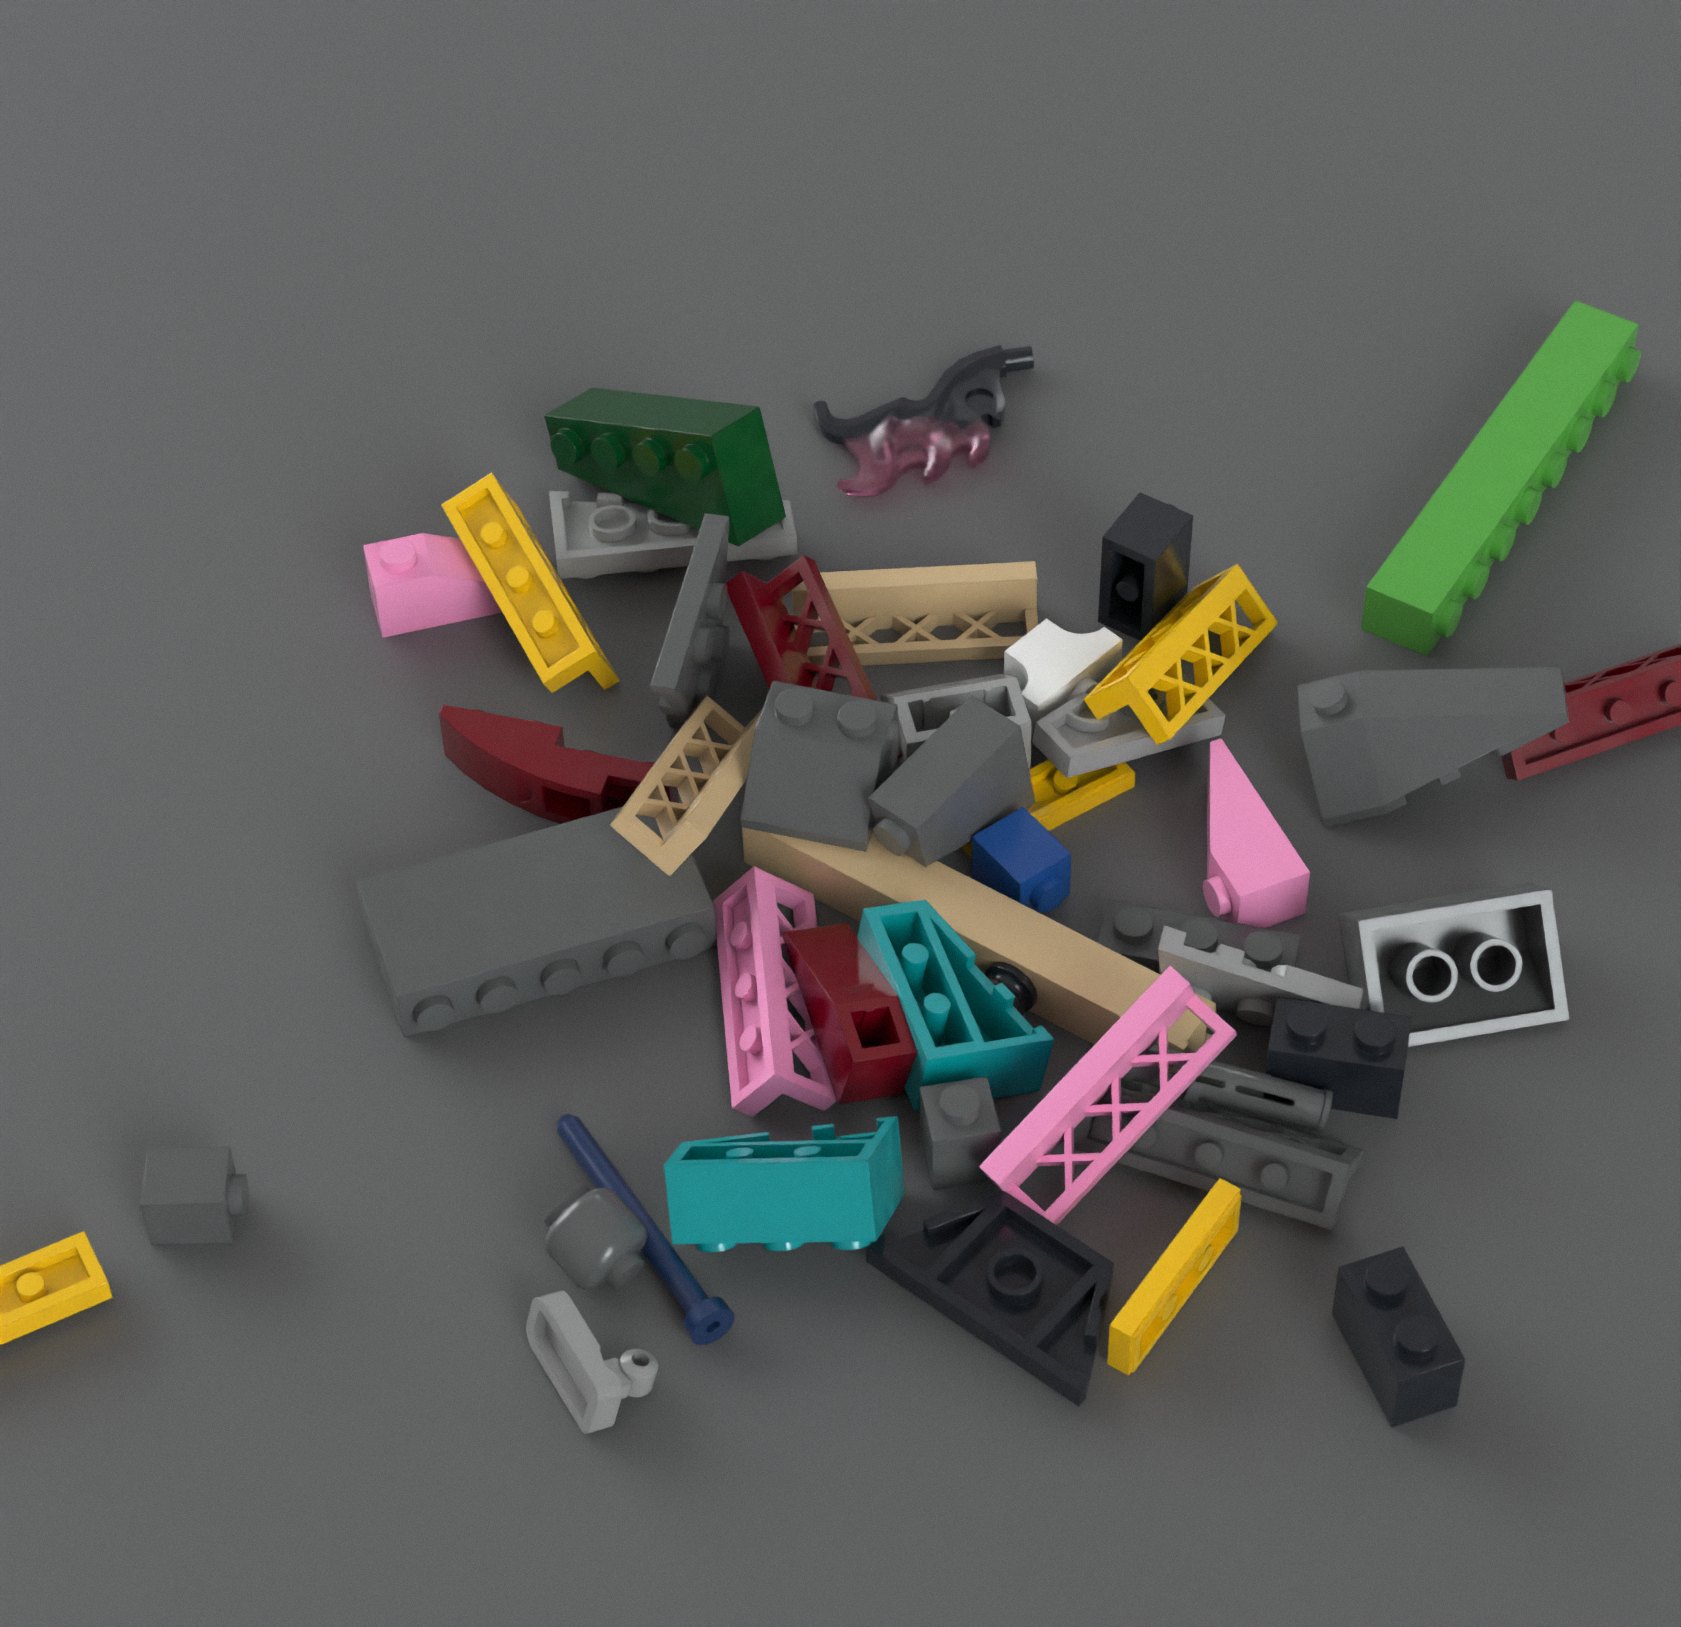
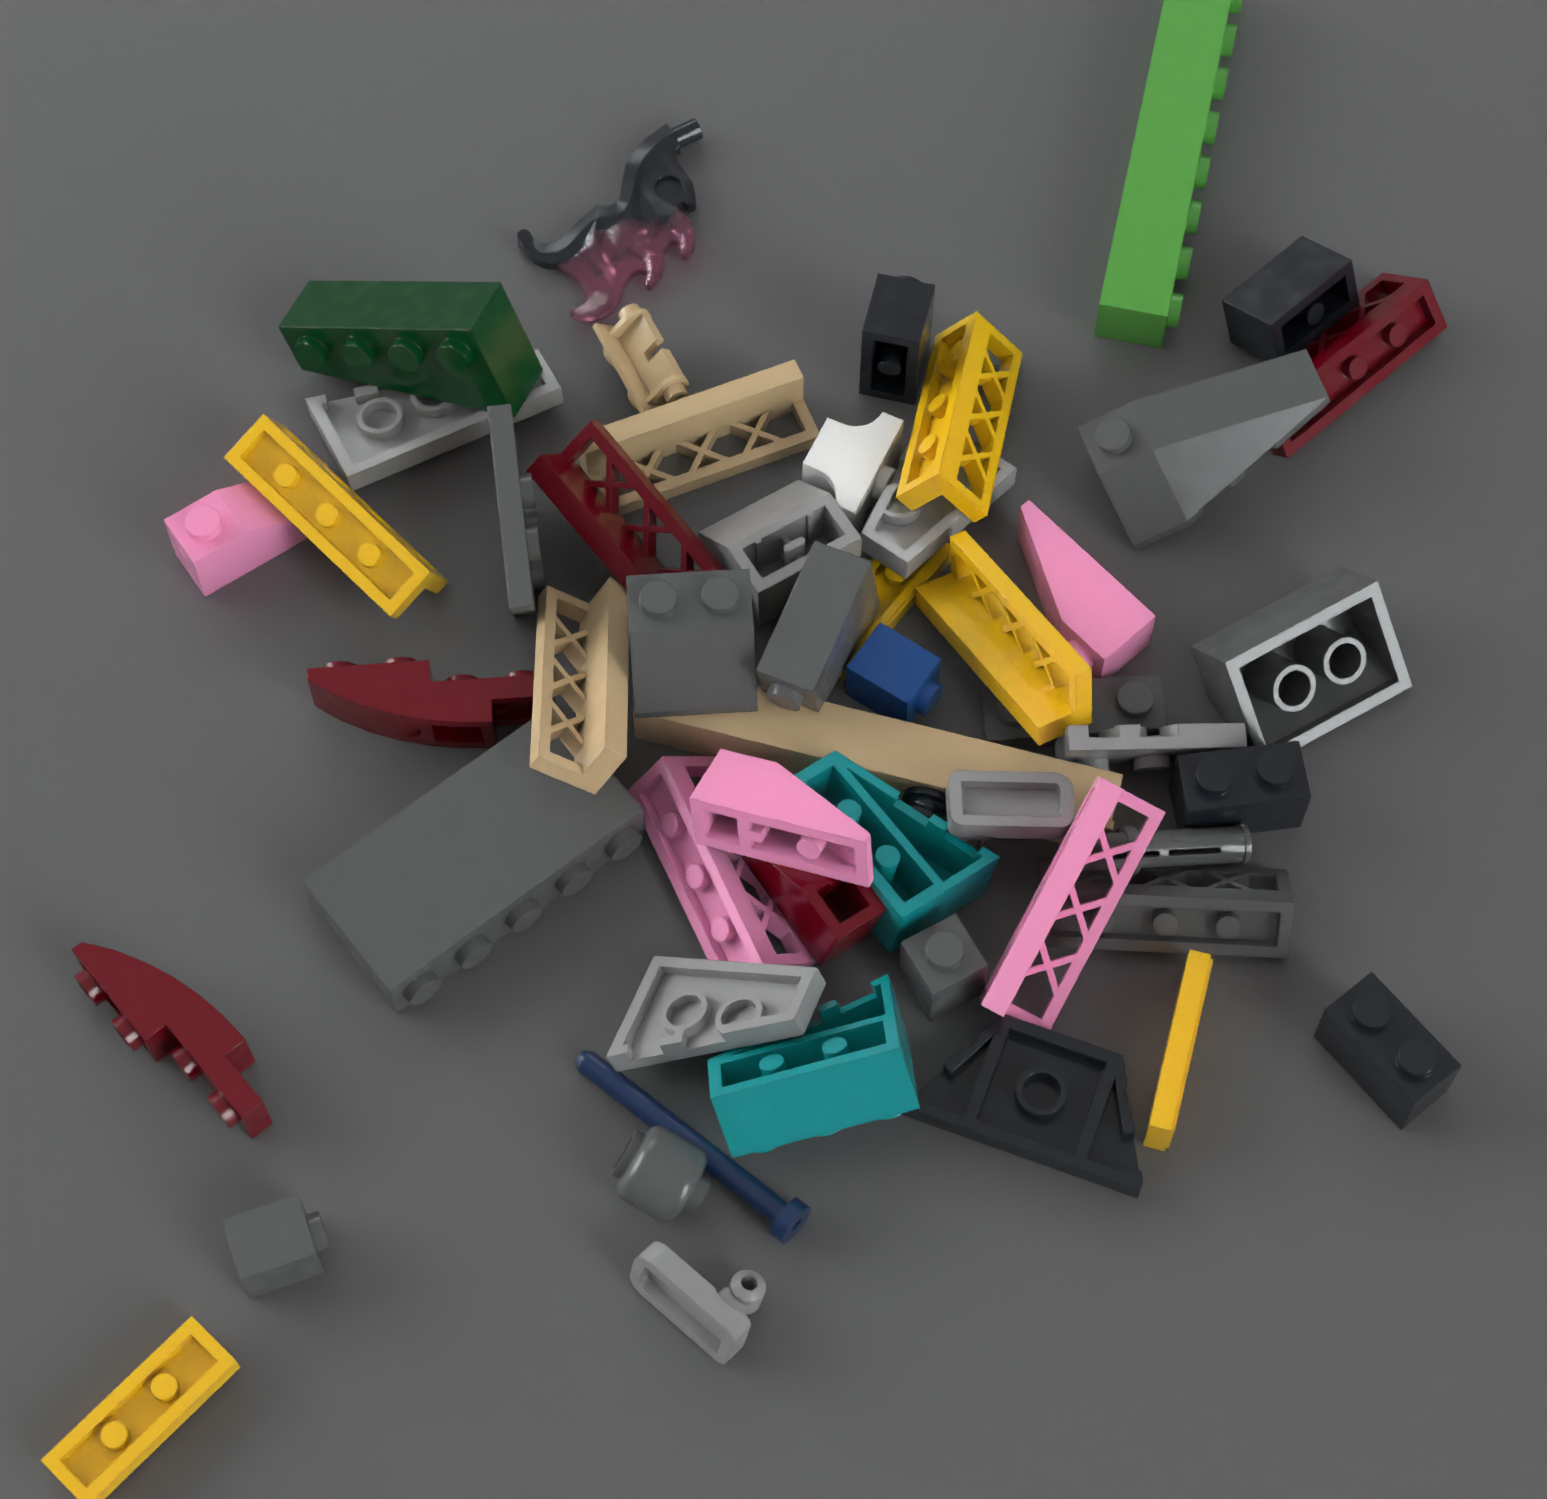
camera: 20 degrees left, 15 degrees up
(183, 980) = (174, 1021): none -> dark red slope
(707, 1097) = (712, 1007): none -> light grey wing
(833, 936) = (775, 817): none -> bright pink slope
(884, 527) = (629, 350): none -> tan hinge
(1073, 991) = (1008, 805): none -> light grey piece
(1144, 854) = (1008, 642): none -> yellow fence
(1579, 630) = (1291, 300): none -> black brick

